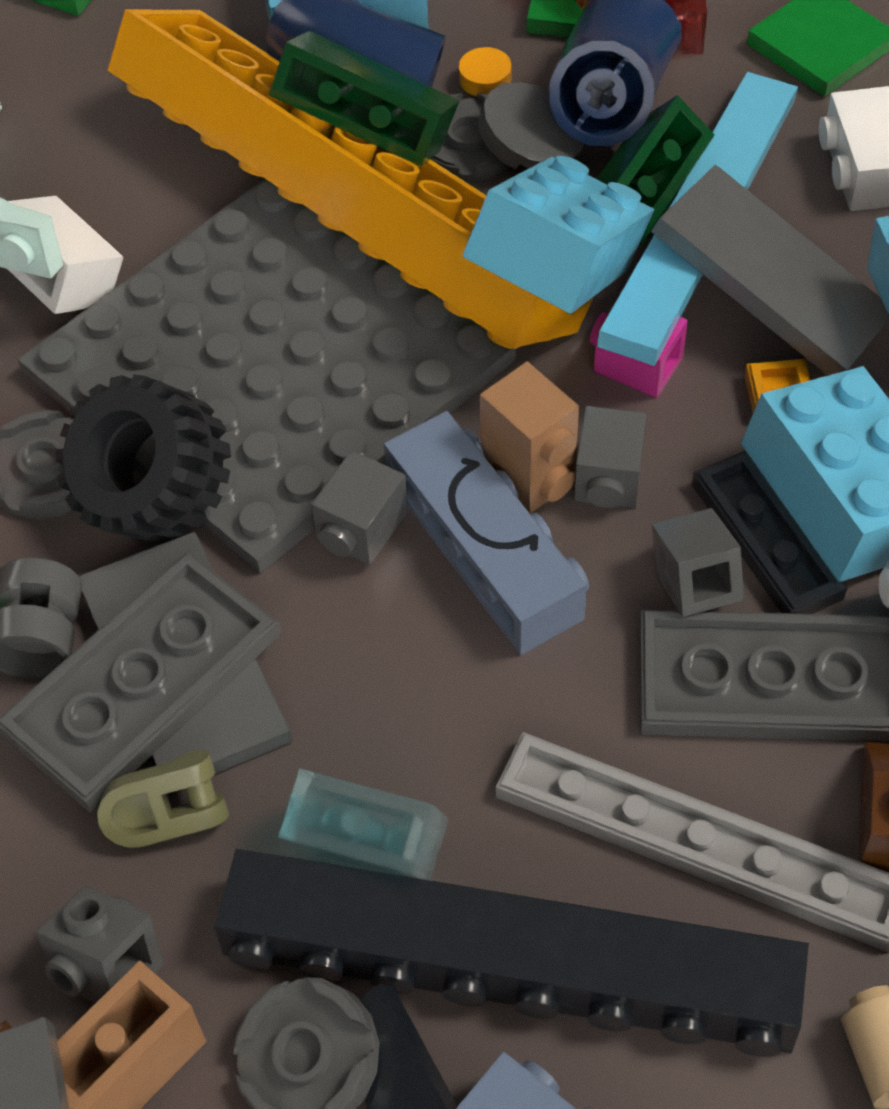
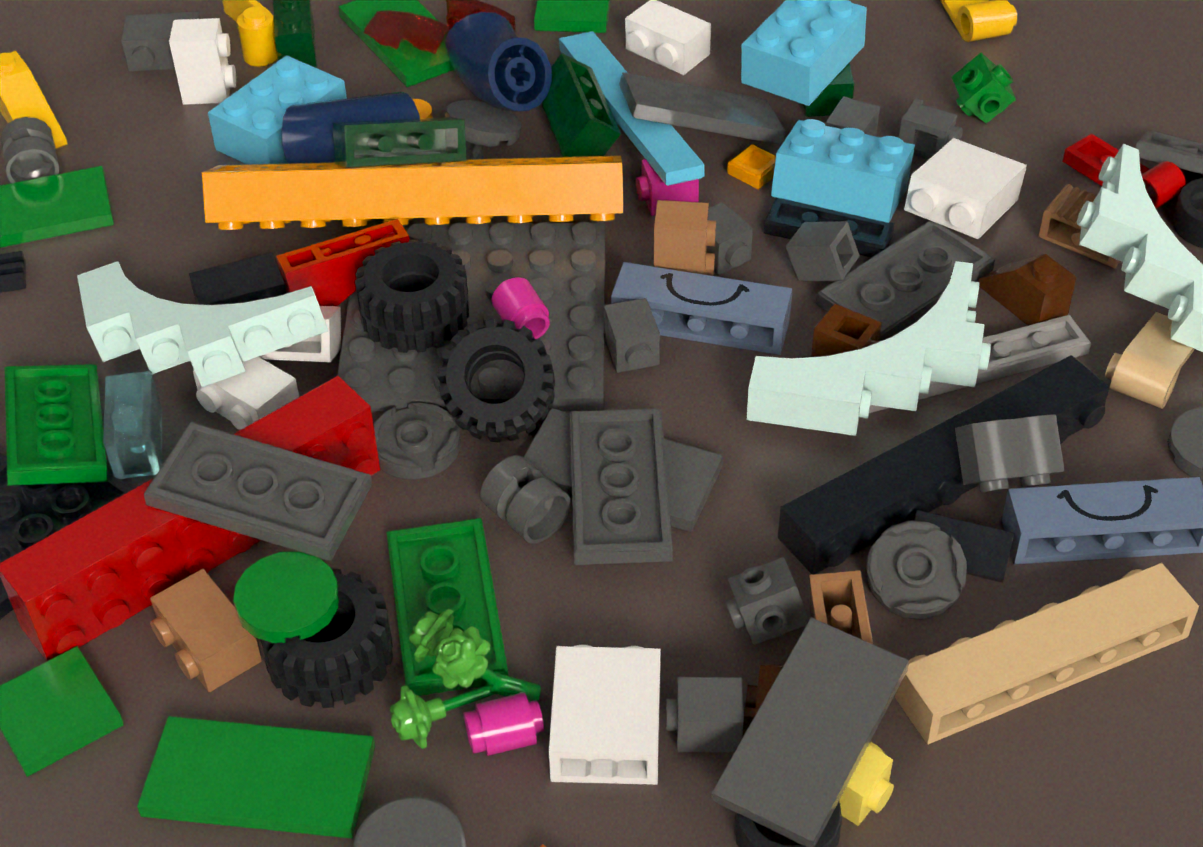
camera: 45 degrees left, 10 degrees down
(82, 170) = (238, 281): none -> black brick
(137, 807) = (697, 537): olive plate -> none
(163, 207) = (333, 263): none -> red slope
(175, 261) = (412, 295): none -> black tyre
(272, 390) = (520, 303): none -> dark pink brick
(363, 826) = (822, 454): clear light blue brick -> none
(551, 1007) = (1009, 450): none -> dark grey brick
(558, 232) = (602, 132): medium azure brick -> none
(574, 787) = (839, 388): none -> light aqua arch
(589, 699) = (843, 332): none -> reddish brown brick

